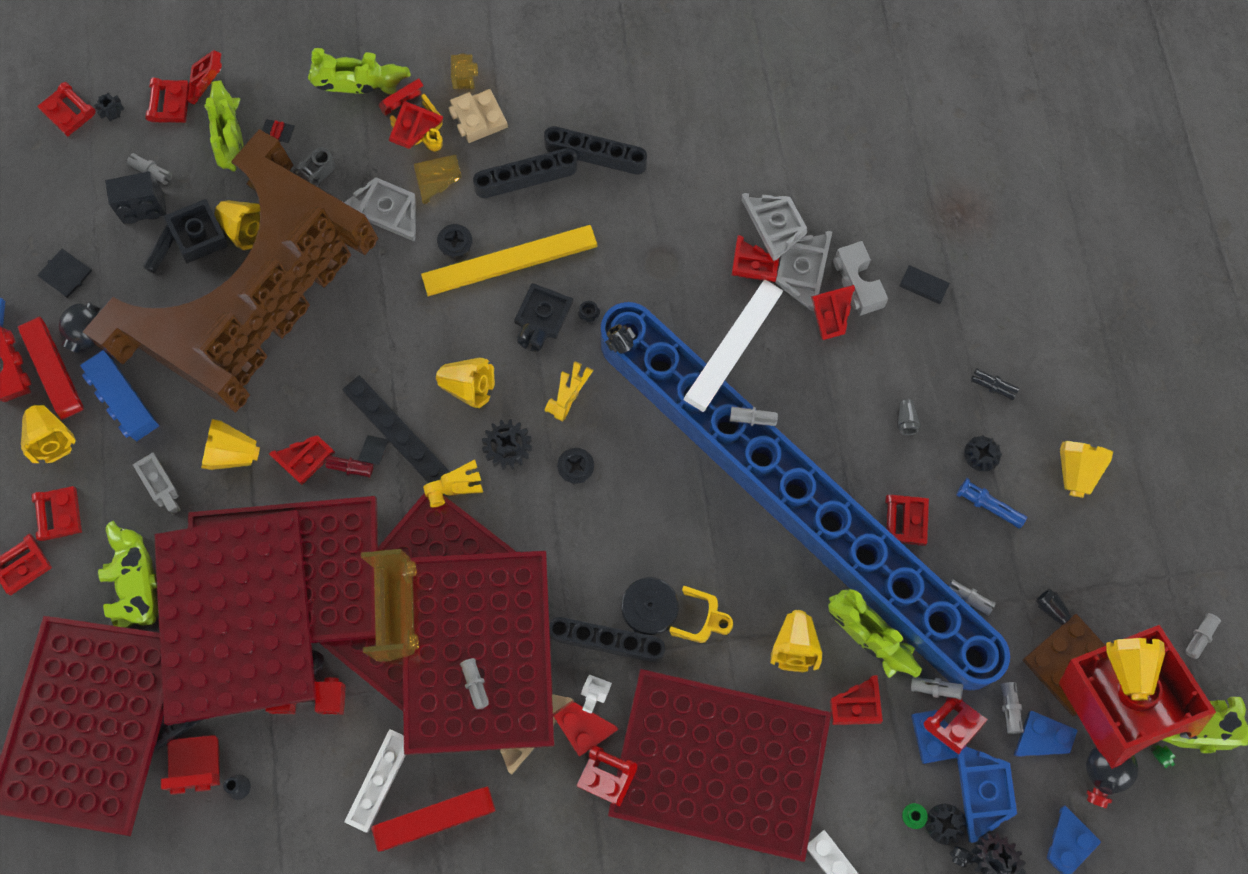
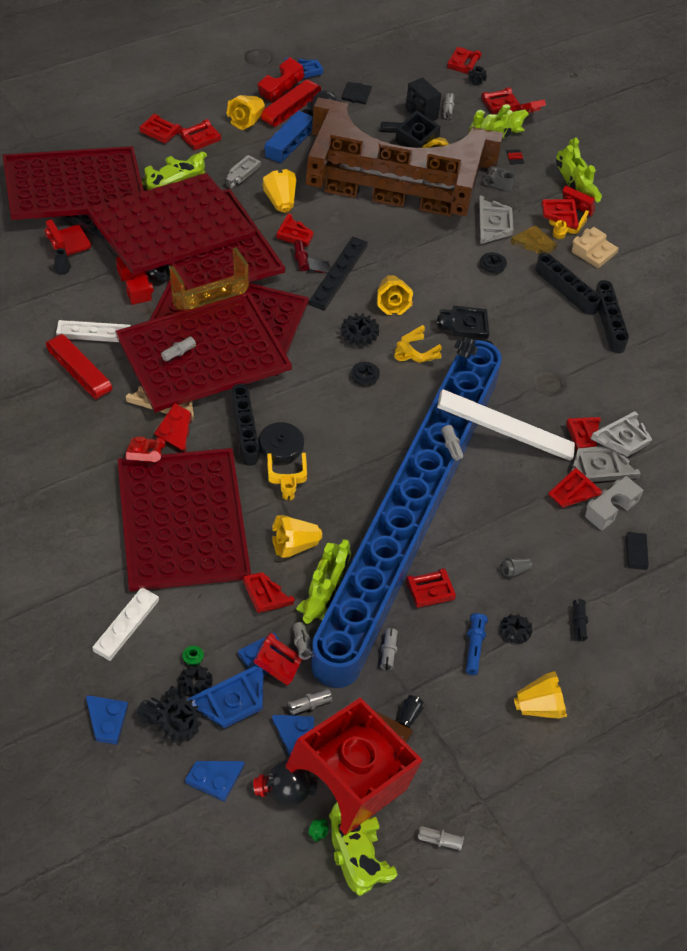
camera: 65 degrees right, 20 degrees down
(453, 483) = (310, 299): yellow piece -> none
(463, 71) = (620, 229): clear yellow brick -> none
(509, 260) = (498, 297): yellow tile -> none
(594, 690) = (205, 426): white plate -> none
(1137, 665) = (374, 733): yellow cone -> none

